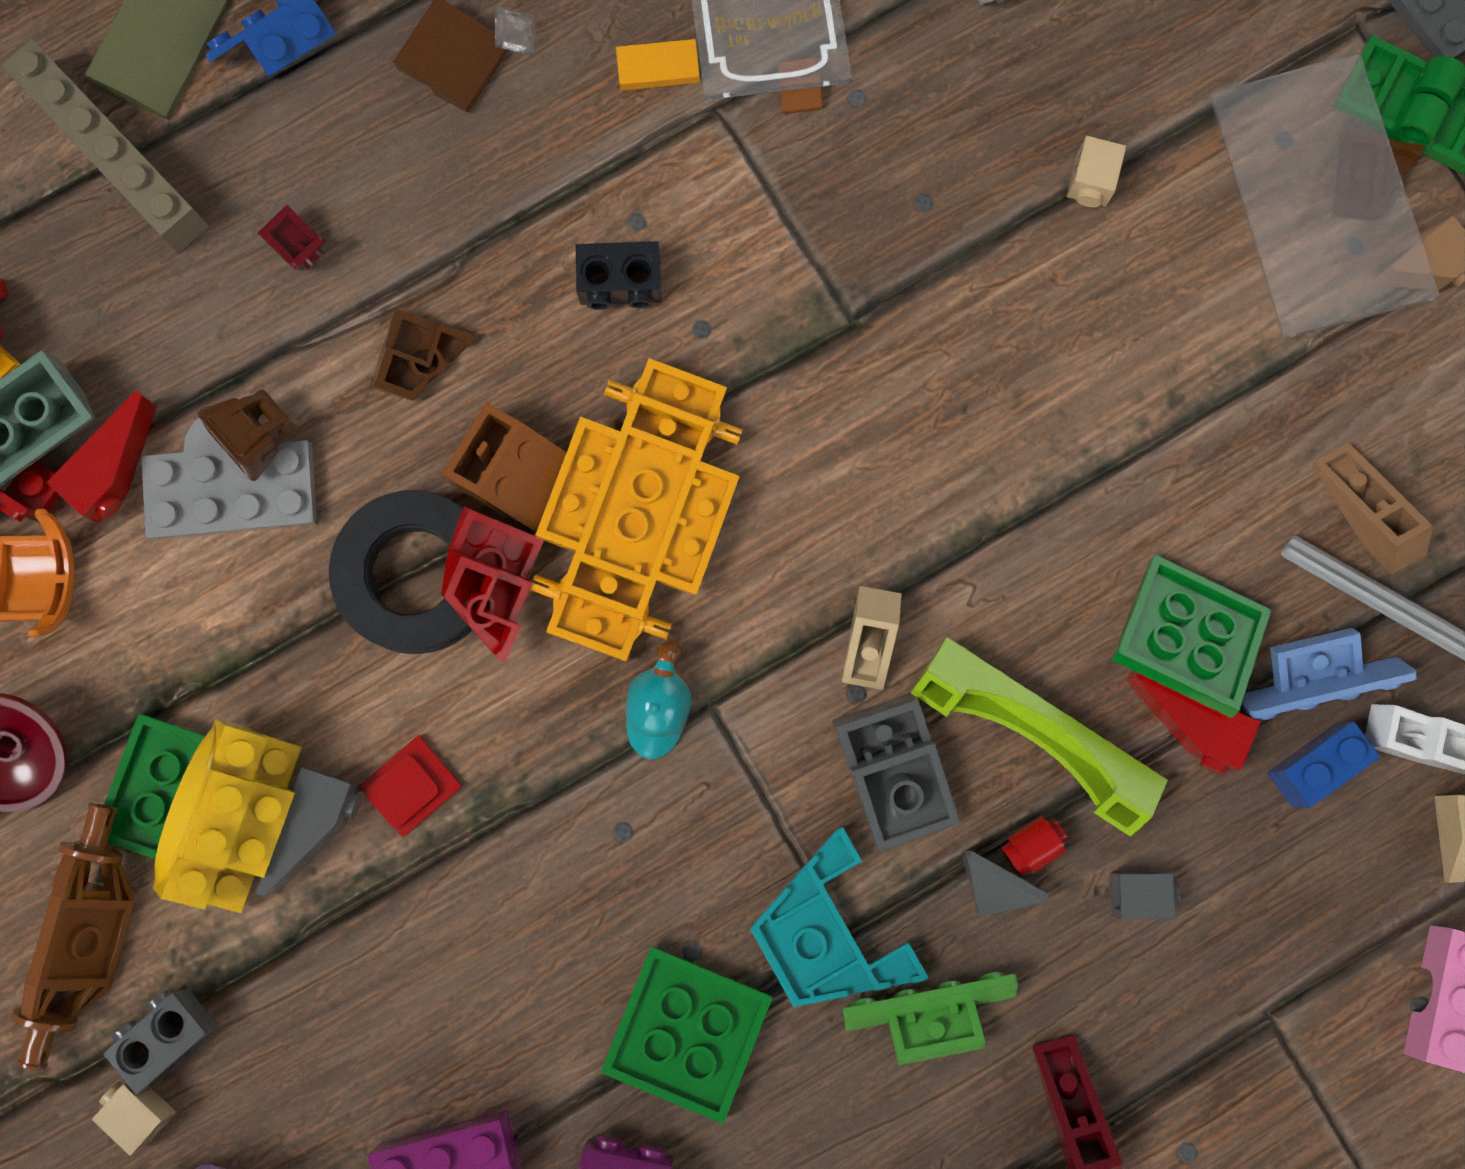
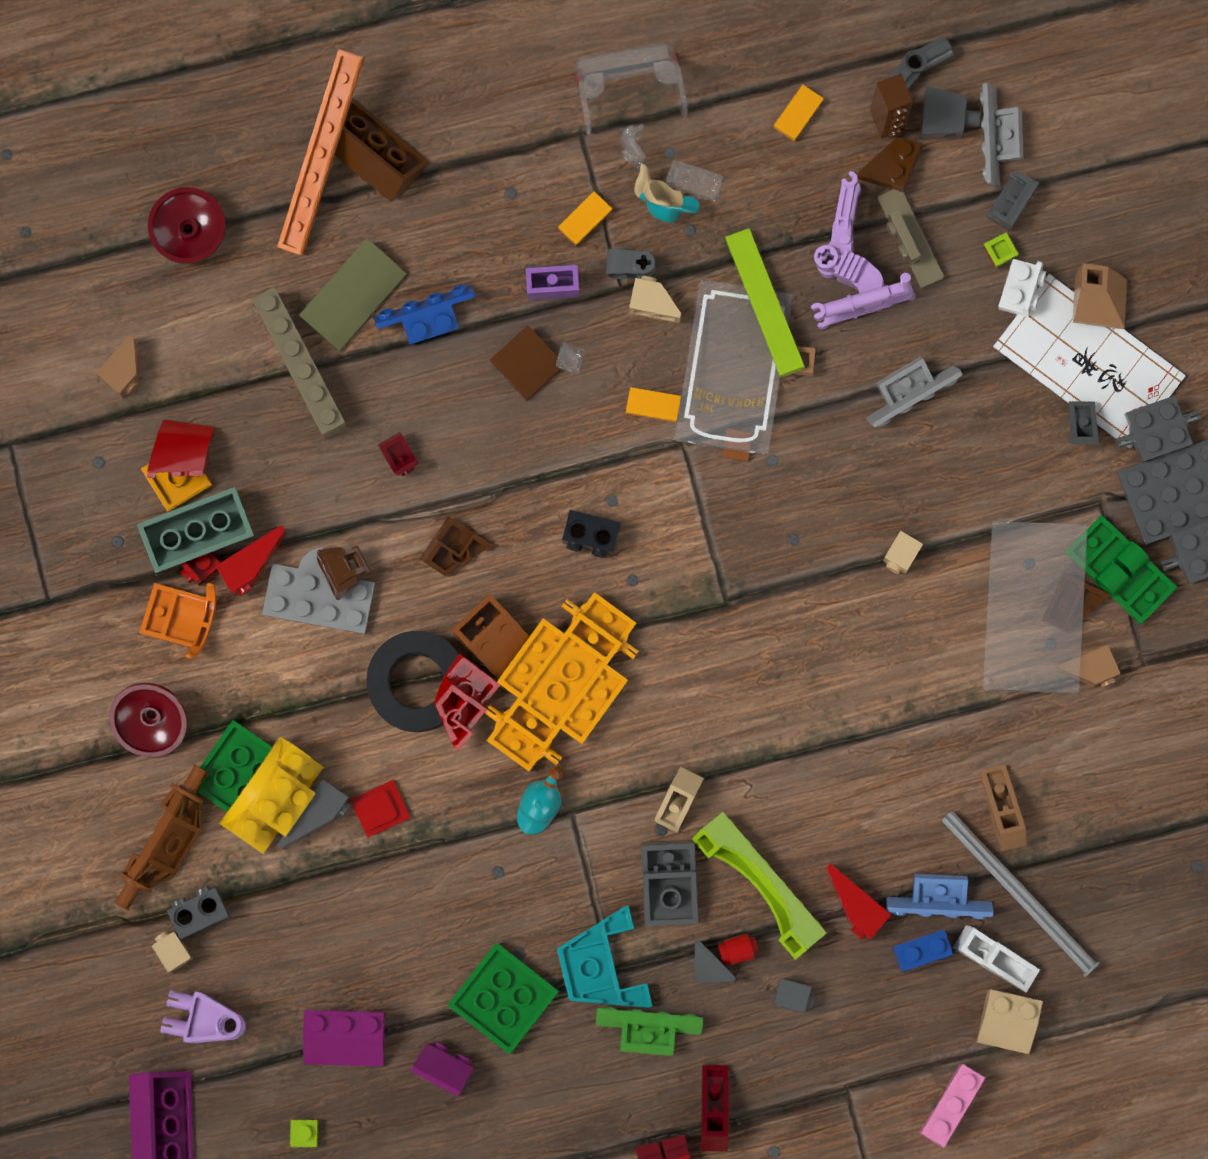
camera: 15 degrees right, 0 degrees up
(1192, 636) = (868, 852): green plate -> none

